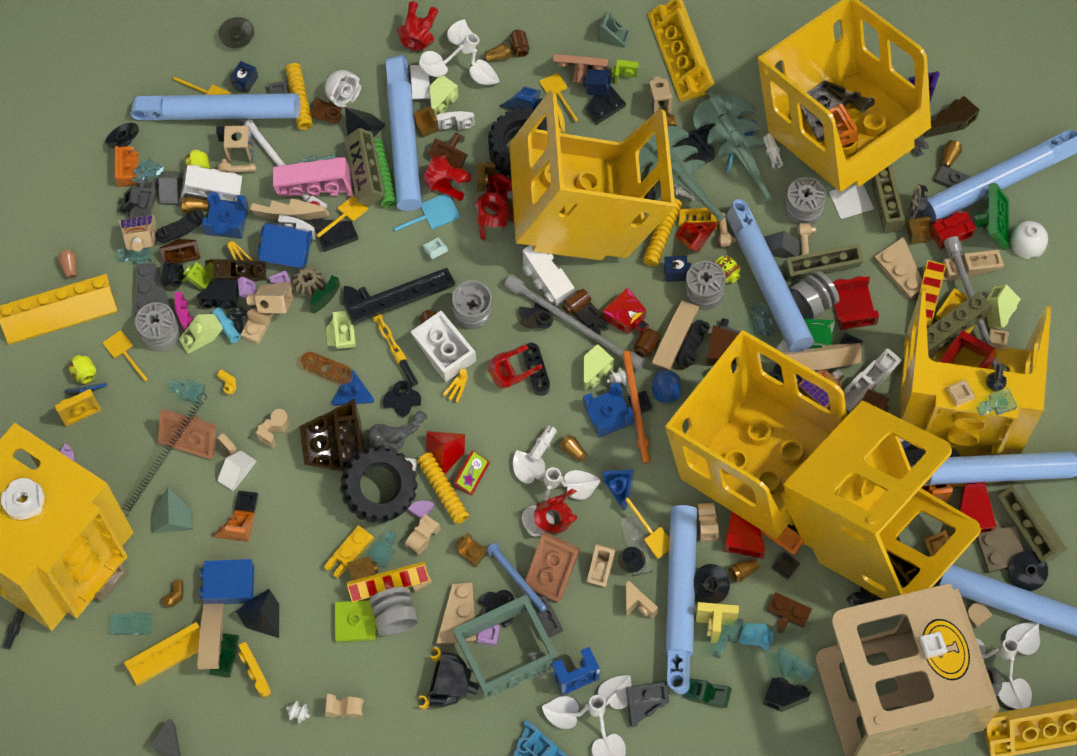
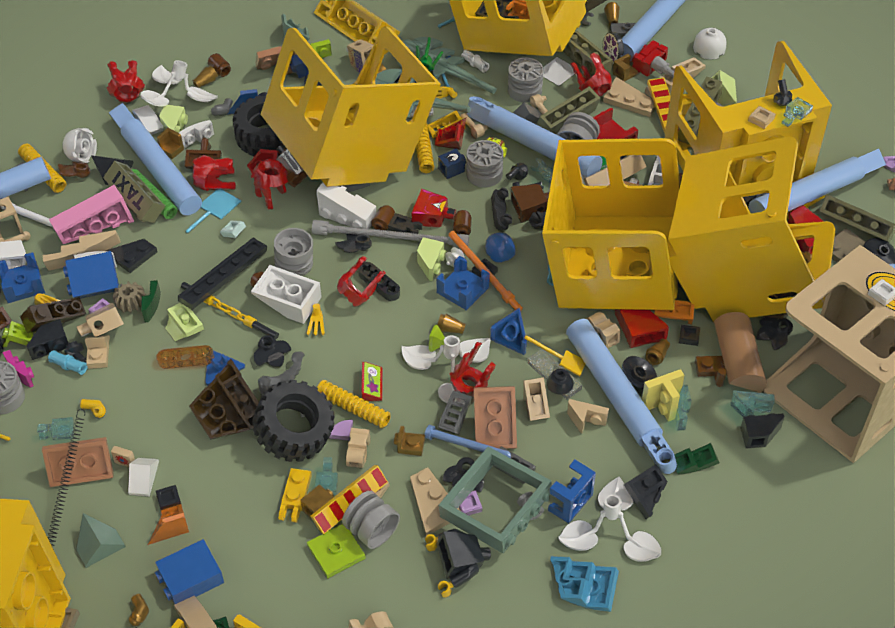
camera: 30 degrees left, 15 degrees down
(200, 332) = (45, 377): yellowish green slope -> none
(246, 287) = (70, 323): lavender tile -> none
(261, 614) = (239, 586): black slope -> none
(278, 423) = (160, 423): tan leg -> none
(349, 208) = (136, 230): yellow piece -> none
(351, 295) = (173, 292): black tile -> none
(446, 448) = (337, 370): red slope -> none
(483, 171) = (243, 161): pearl gold bracket -> none
(495, 99) = (222, 109): none -> dark grey arm
(507, 548) = (448, 409): none -> dark grey slope
(542, 443) = (421, 331): white axle -> none
(551, 457) = (436, 338): none -> lime slope
(556, 84) = (262, 83): yellow piece -> none
(675, 335) = (483, 209): tan slope -> none
(715, 137) = (426, 60): none -> green plant
(716, 175) = (446, 91): none -> yellow piece
(735, 306) = (518, 171): none -> black plate
(756, 635) = (703, 395): medium azure bracket -> none
(815, 609) = (740, 351): none -> medium nougat brick
(875, 235) = (599, 82): none -> red piece
(996, 216) = (676, 36): green plate -> none

